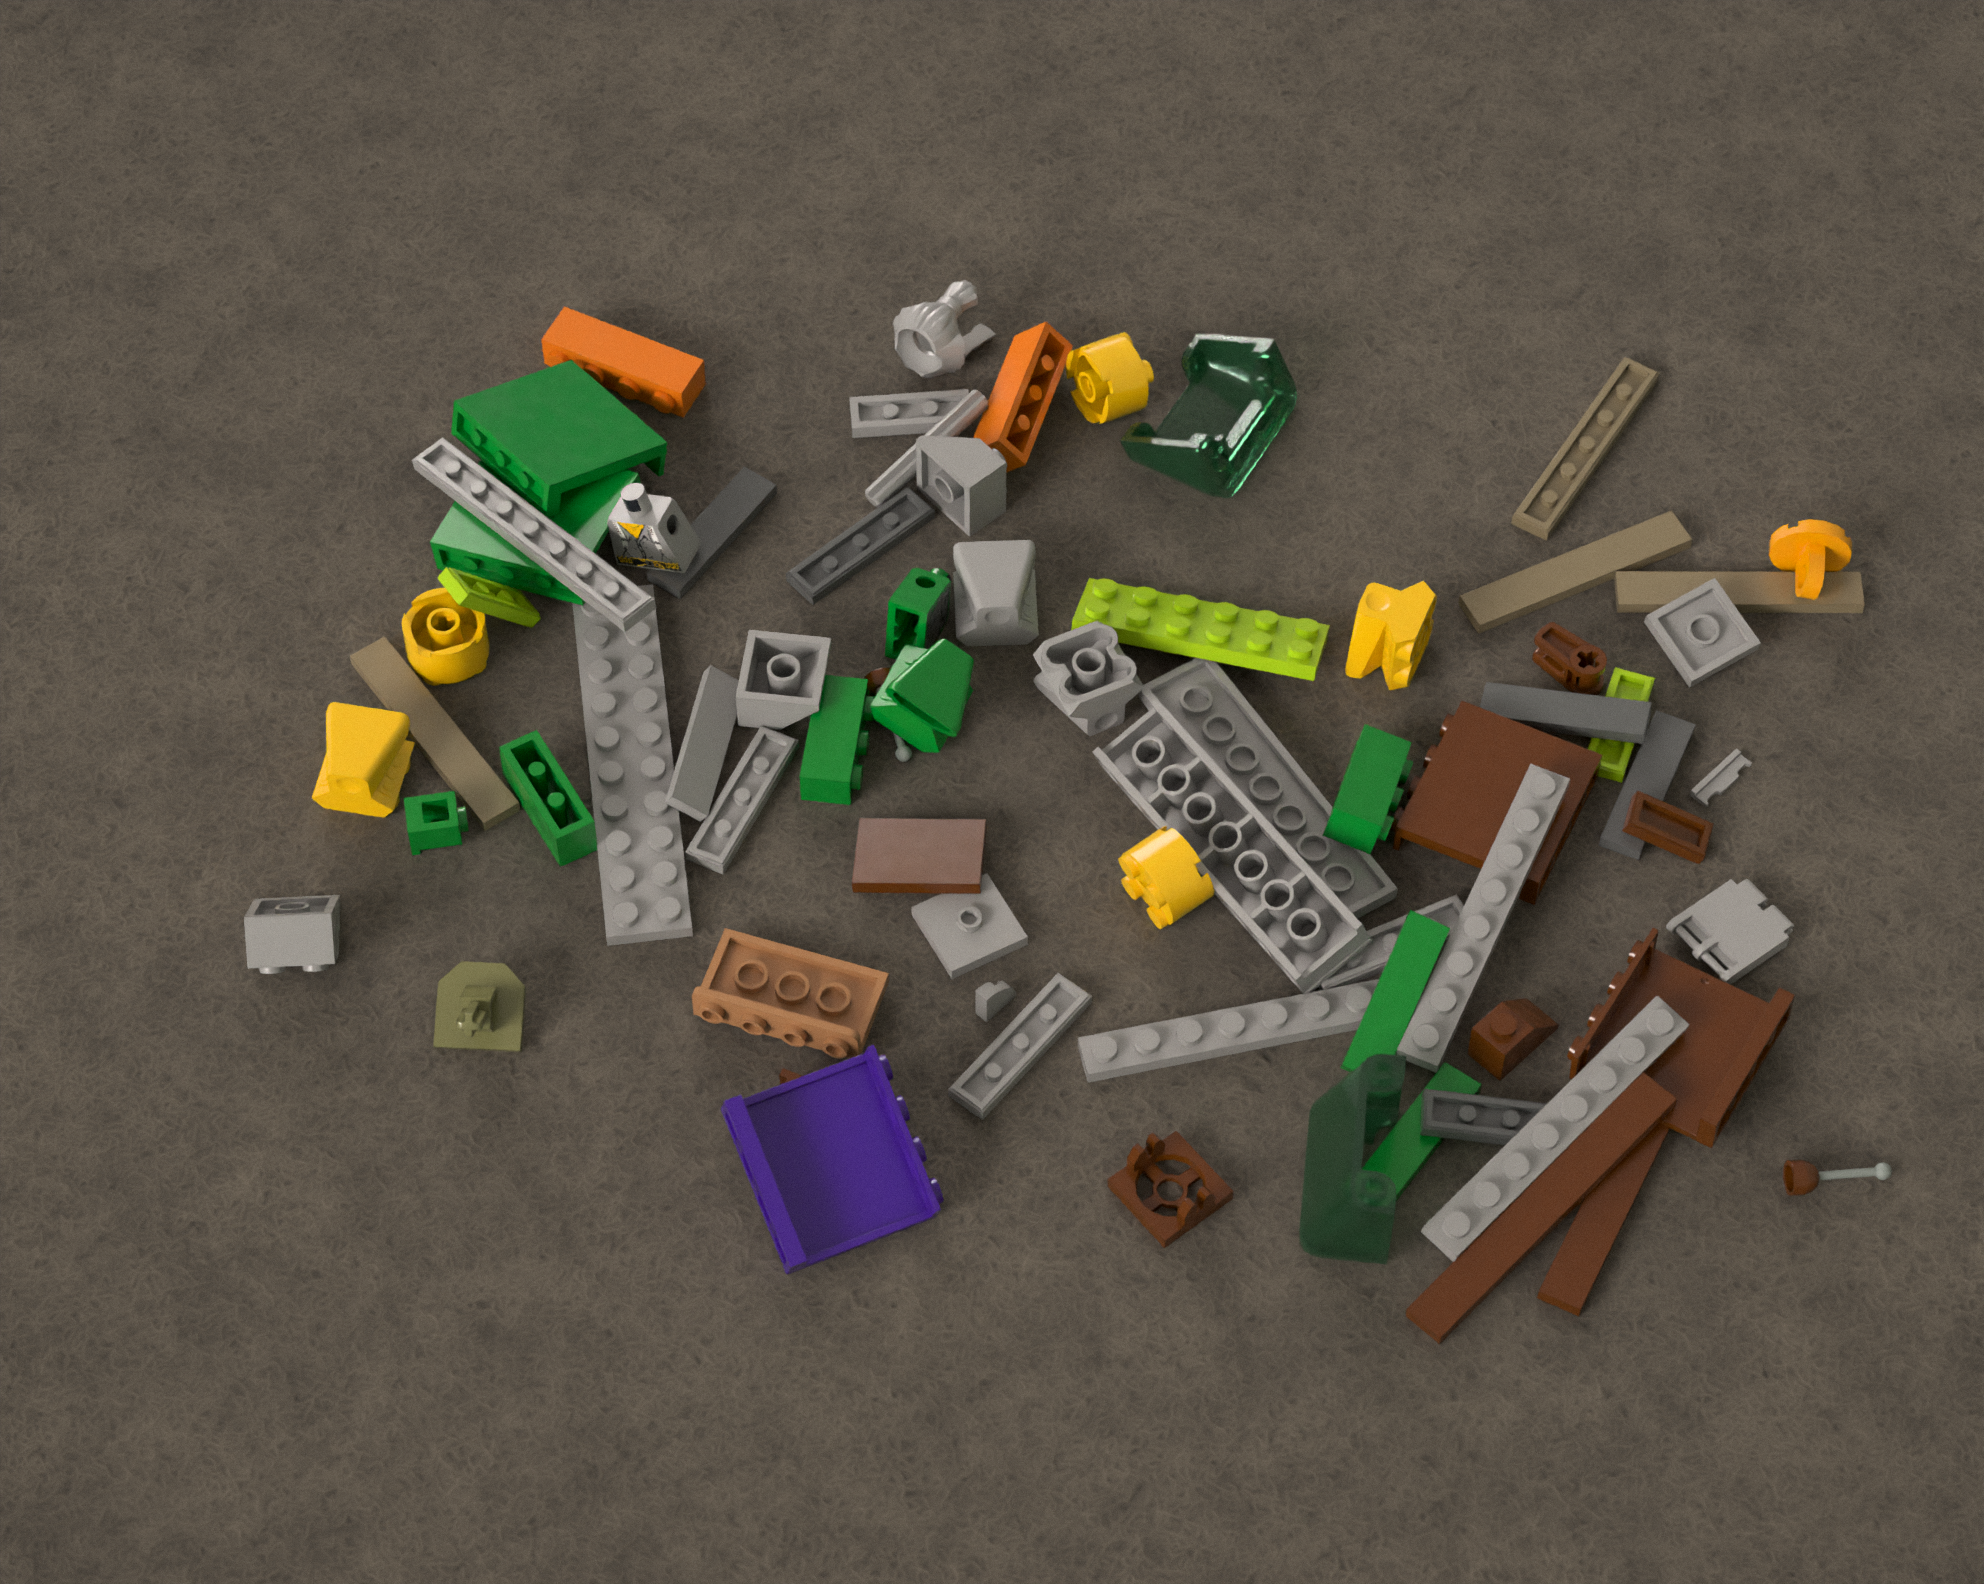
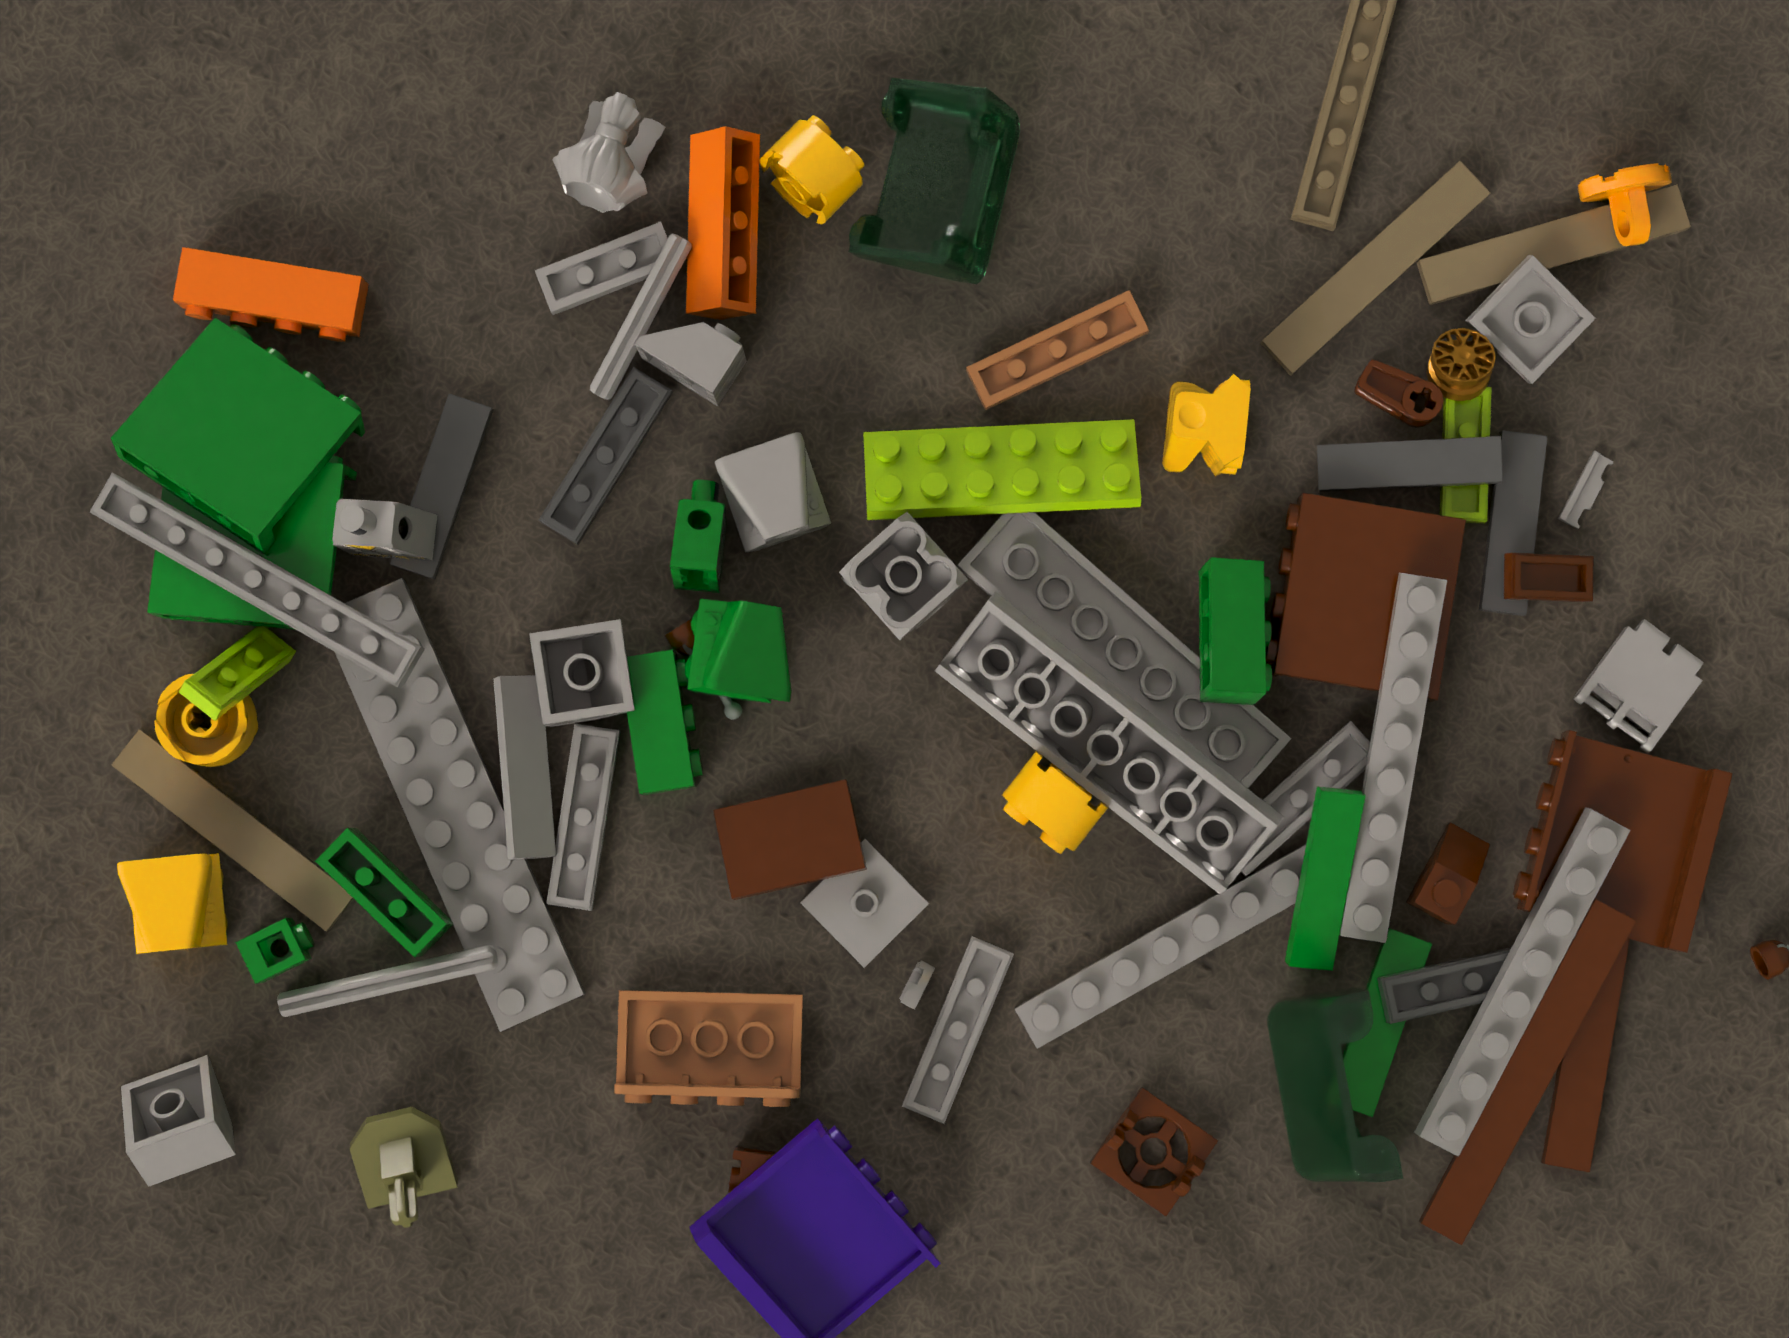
camera: 15 degrees left, 30 degrees up
(523, 869) = (387, 980): none -> light grey axle
(1277, 560) = (1057, 350): none -> medium nougat plate
(1630, 651) = (1472, 357): none -> pearl gold wheel

